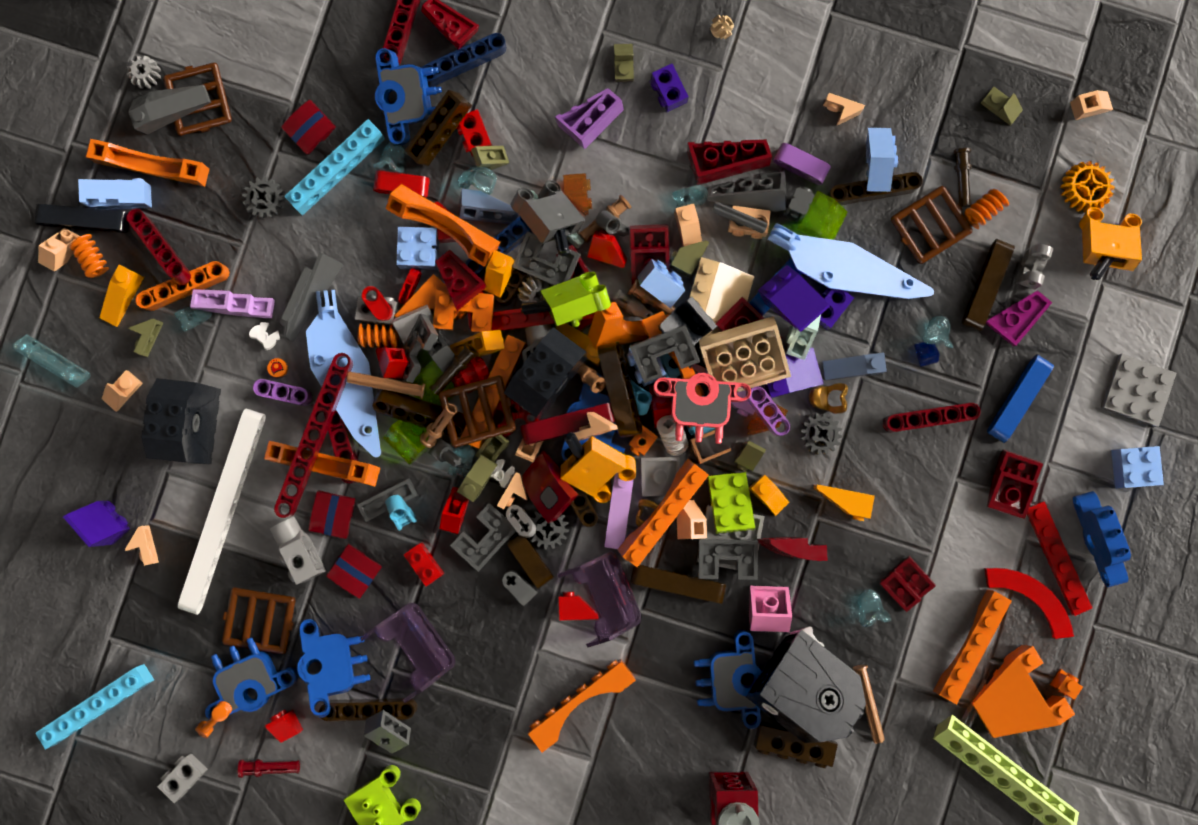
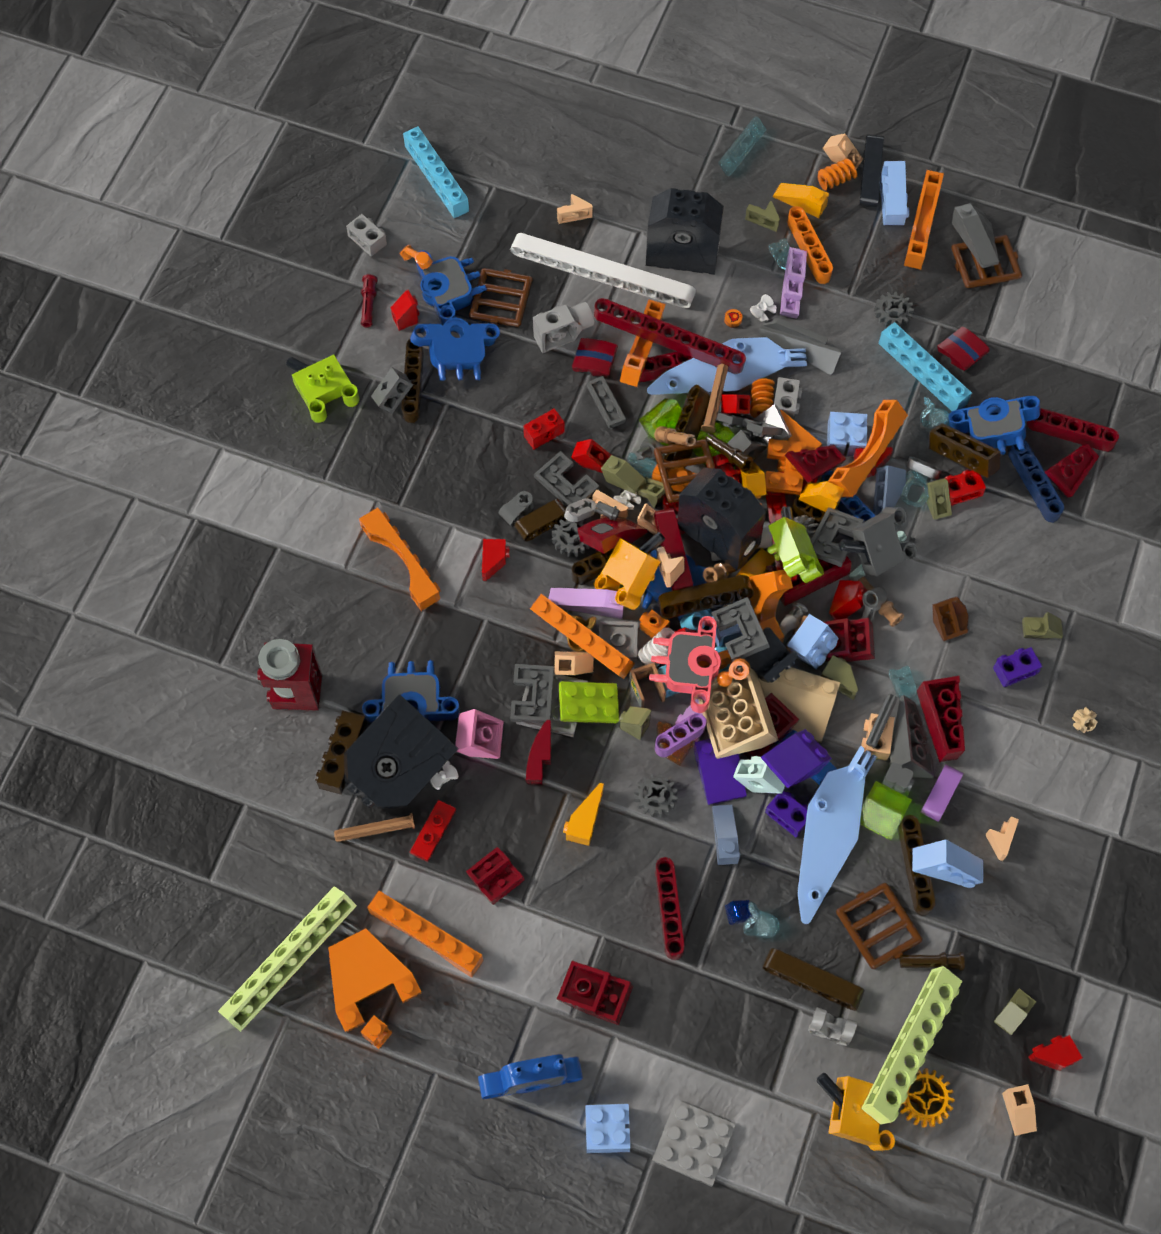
camera: 90 degrees right, 20 degrees down
(98, 524) = (595, 172): dark purple slope -> none
(118, 393) = (714, 190): light nougat slope -> none
(137, 69) = (1009, 219): light grey gear -> none
(158, 246) = (845, 224): dark red beam -> none
(274, 388) = (711, 313): medium lavender beam -> none
(353, 571) = (541, 373): dark red slope -> none
(378, 307) = (789, 396): red piece -> none
(387, 182) = (909, 430): red beam -> none
(399, 511) = (594, 409): medium azure piece -> none
(409, 286) = (813, 426): red piece -> none
(420, 644) = (472, 424): clear purple windscreen -> none
(453, 171) = (924, 468): none -> flat silver beam
(523, 493) = (607, 510): none -> dark grey pin
(576, 191) = (906, 576): clear orange slope -> none
(589, 119) = (981, 590): medium lavender wedge -> none
(611, 595) = (507, 590): clear purple windscreen -> none
(621, 149) = (950, 618): none -> reddish brown slope
(678, 583) = (510, 651): dark brown beam -> none
(688, 224) = (875, 677): light nougat slope -> none
(709, 354) = (725, 678): none -> orange plate
(769, 494) = (595, 741): light orange slope -> none
(819, 397) = (695, 798): pearl gold piece -> none
(867, 646) = (433, 831): none -> red plate
(870, 602) = (478, 835): clear light blue piece -> none
(984, 207) = (898, 981): orange piece -> none
(1019, 318) = (776, 1012): magenta wing -> none
(1020, 398) = (688, 1005): blue beam -> none
(1037, 593) = (475, 1011): red tile -> none
(1040, 70) = (1058, 1054): none -> red slope
(1051, 196) = (876, 1104): none -> yellowish green brick
(1058, 559) = (511, 1037): red plate -> none

